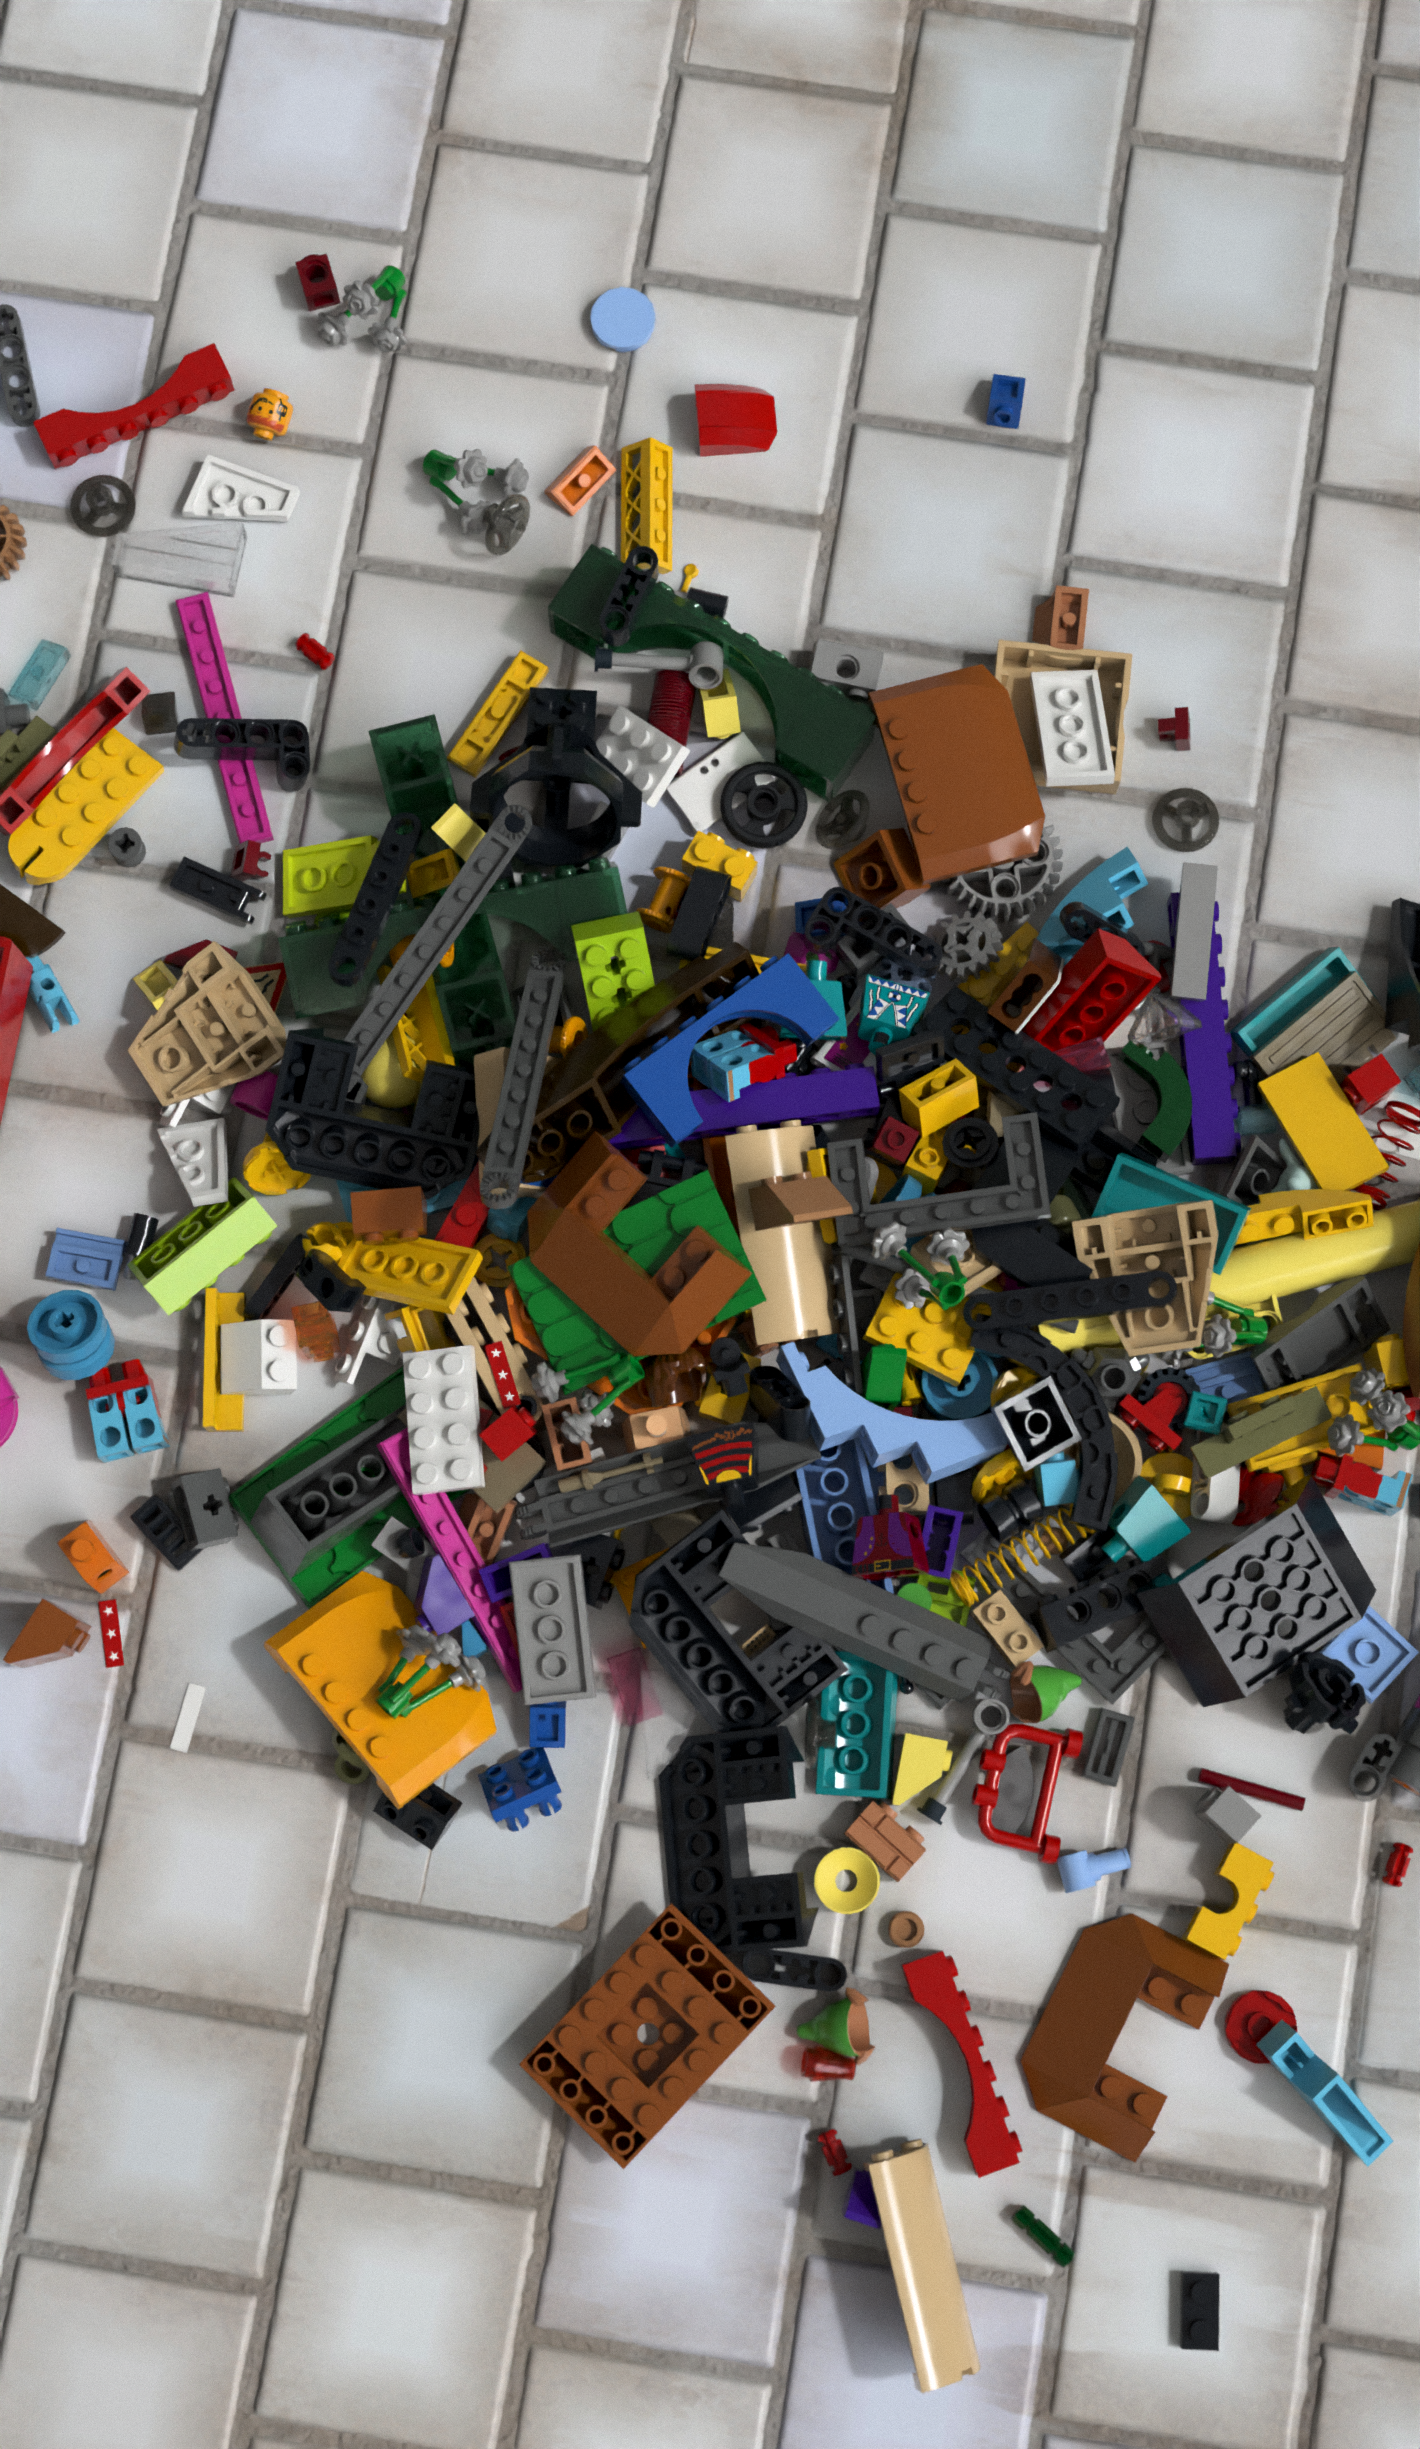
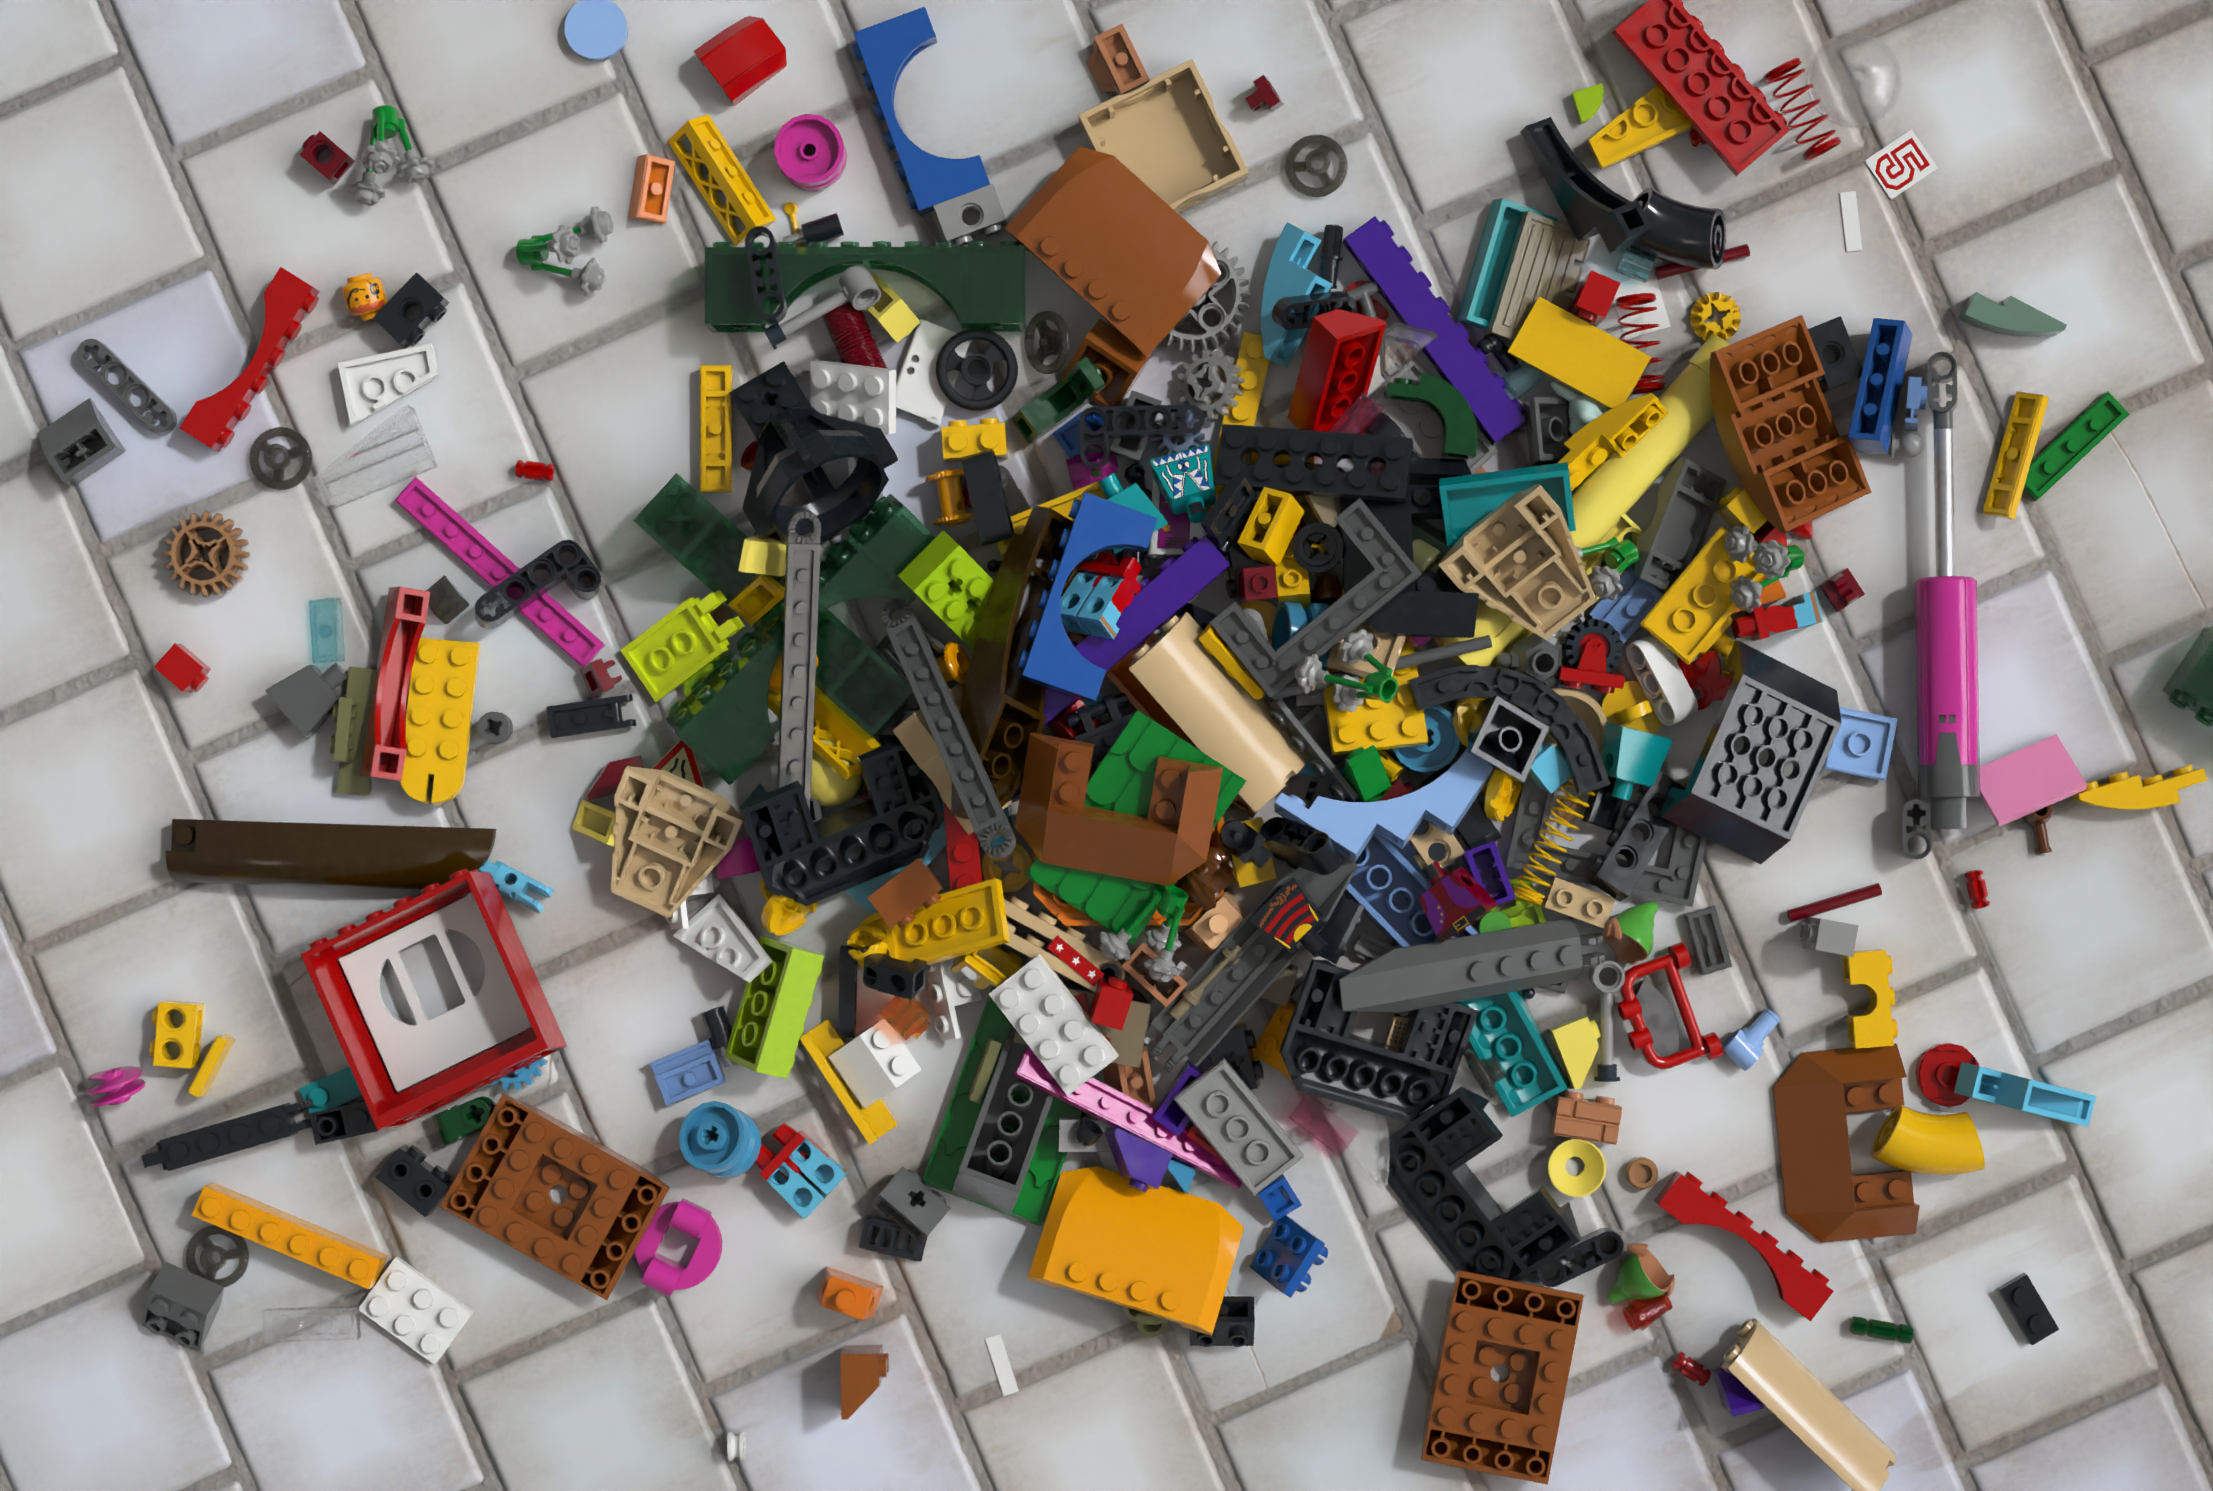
camera: 30 degrees left, 10 degrees up
(111, 1633) = (901, 1340): red sticker -> none
(311, 436) = (394, 313): none -> black brick
(354, 1427) = (984, 1070): none -> olive tile
(375, 899) = (731, 654): black plate -> none
(438, 1649) = (1172, 1200): plant -> none
(501, 521) = (619, 268): clear smoke piece -> none
(739, 529) = (793, 145): none -> dark pink wheel
(796, 1201) = (1219, 687): medium nougat slope -> none
(810, 879) = (1060, 401): none -> dark green arch
(863, 489) = (886, 53): none -> blue arch
(1012, 1509) = (1526, 811): black wheel -> none
(1026, 985) = (1281, 392): reddish brown piece -> none
(1070, 1301) = (1476, 629): black plate -> none
(1072, 728) = (1182, 152): white plate -> none
(1150, 902) = (1331, 254): none -> black axle
(1193, 932) = (1383, 262): light grey slope -> none
(1202, 2078) = (1929, 1143): none -> yellow brick
(1205, 1412) = (1629, 643): teal tile -> none
(1258, 1432) = (1680, 630): olive bracket -> none
(1323, 1695) = (1848, 804): black piece -> none

